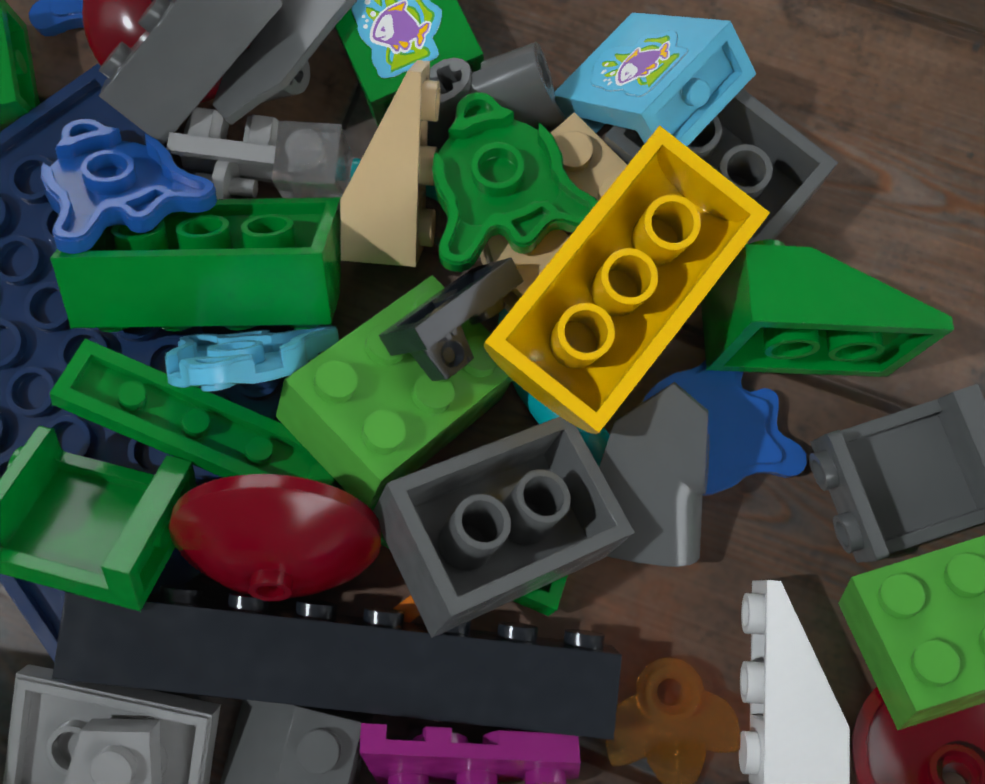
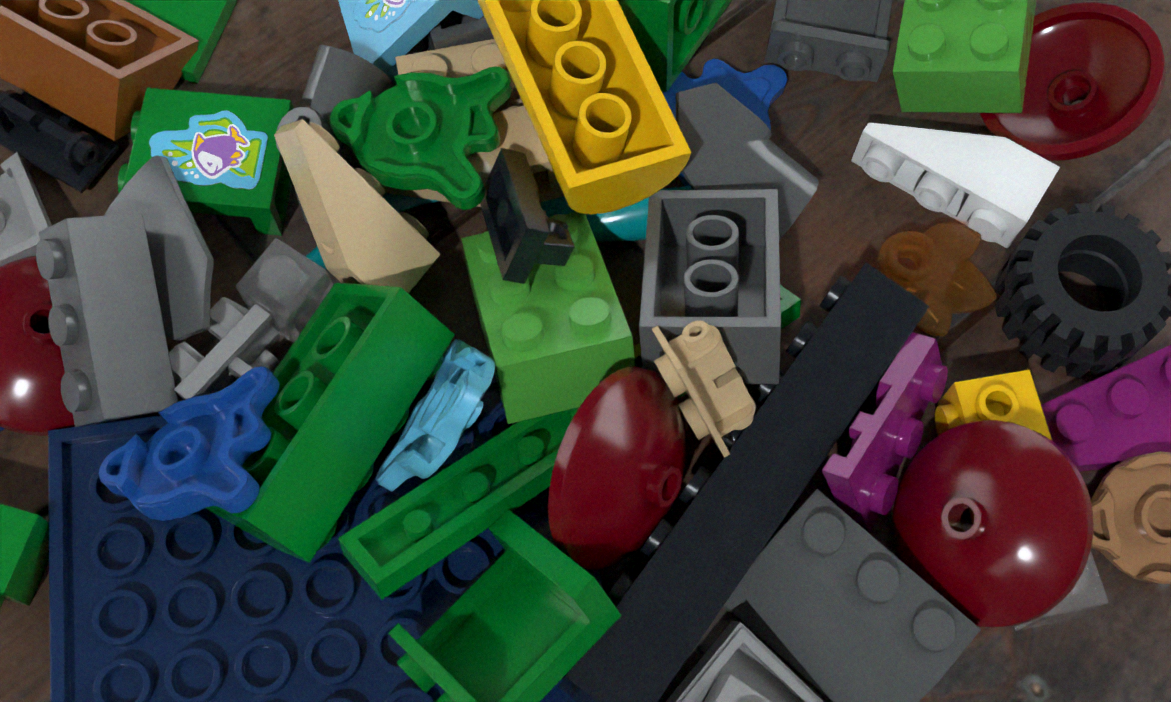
camera: 70 degrees left, 10 degrees down
(377, 569) = (694, 366): none -> tan hinge

